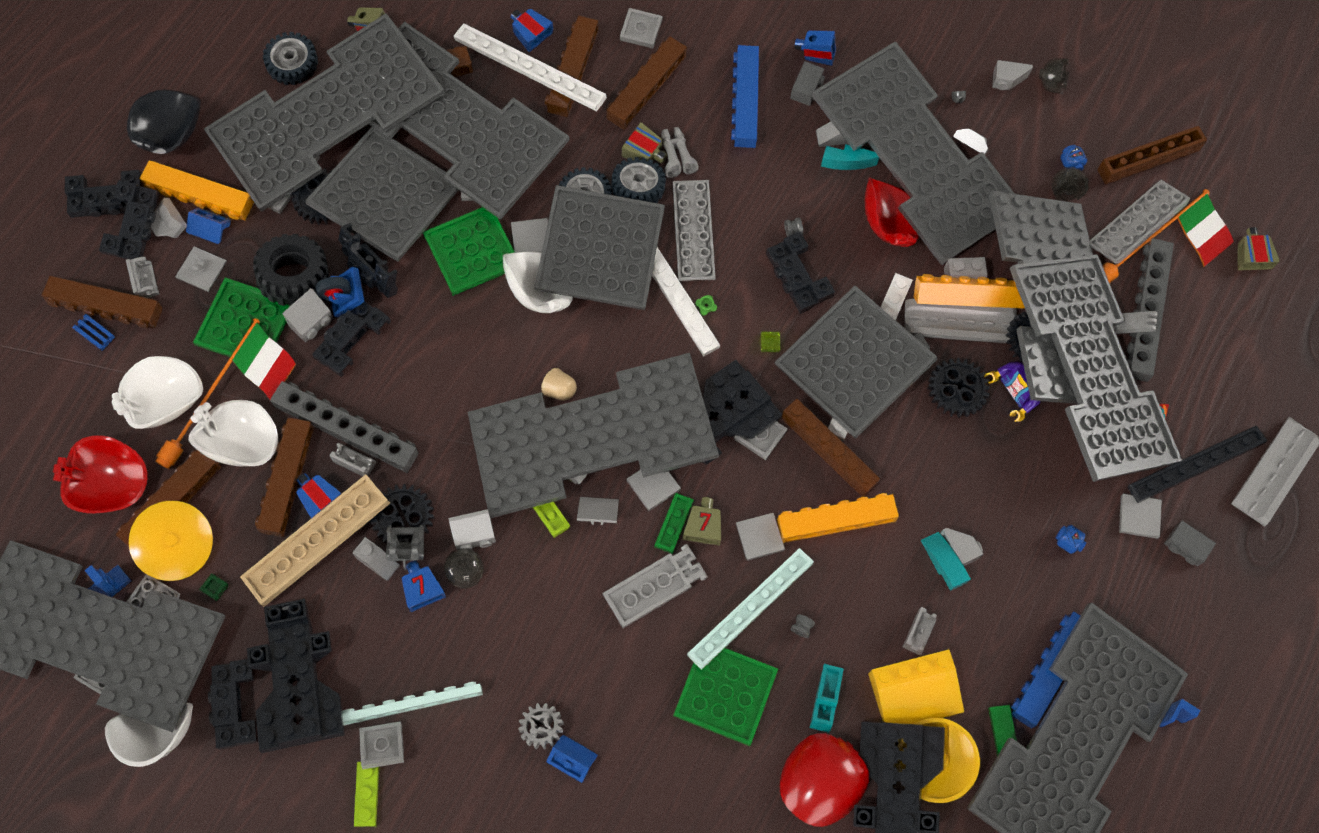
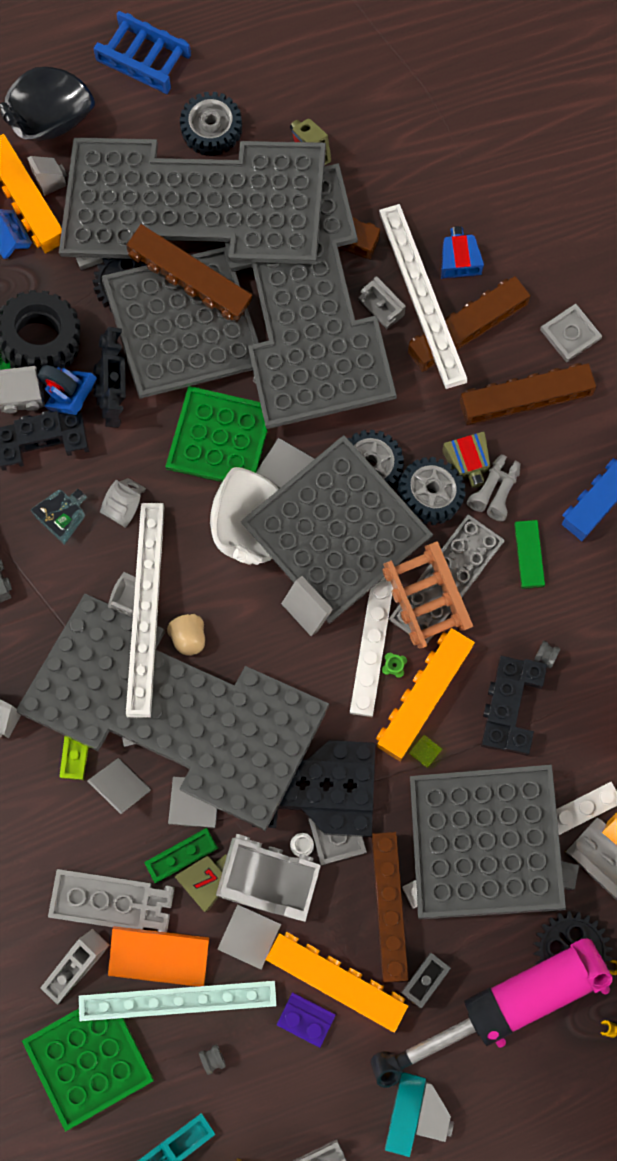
camera: 45 degrees right, 5 degrees up
(201, 59) = (141, 70): none -> blue fence
(203, 165) = (47, 174): none -> light grey slope
(364, 157) = (188, 273): none -> reddish brown brick
(406, 374) = (61, 513): none -> torso
(442, 337) = (122, 501): none -> light grey piece
(499, 389) = (123, 595): none -> light grey piece
(502, 90) = (382, 302): none -> light grey hinge
(521, 387) = (145, 611): none -> white plate
(622, 308) = (306, 606): none -> light grey tile
(666, 643) = (75, 965): none -> light grey slope
(701, 229) = (450, 596): none -> nougat fence
(714, 593) = (158, 956): none -> orange tile
(730, 177) = (529, 554): none -> green tile
(741, 307) = (425, 694): none -> light orange brick
(744, 456) = (302, 844): none -> white plate
(744, 490) = (268, 879): none -> light grey cylinder
(837, 557) = (306, 1020): none -> dark purple plate
(889, 471) = (425, 980): none -> dark grey brick
(952, 444) = (510, 1006): none -> dark pink piece

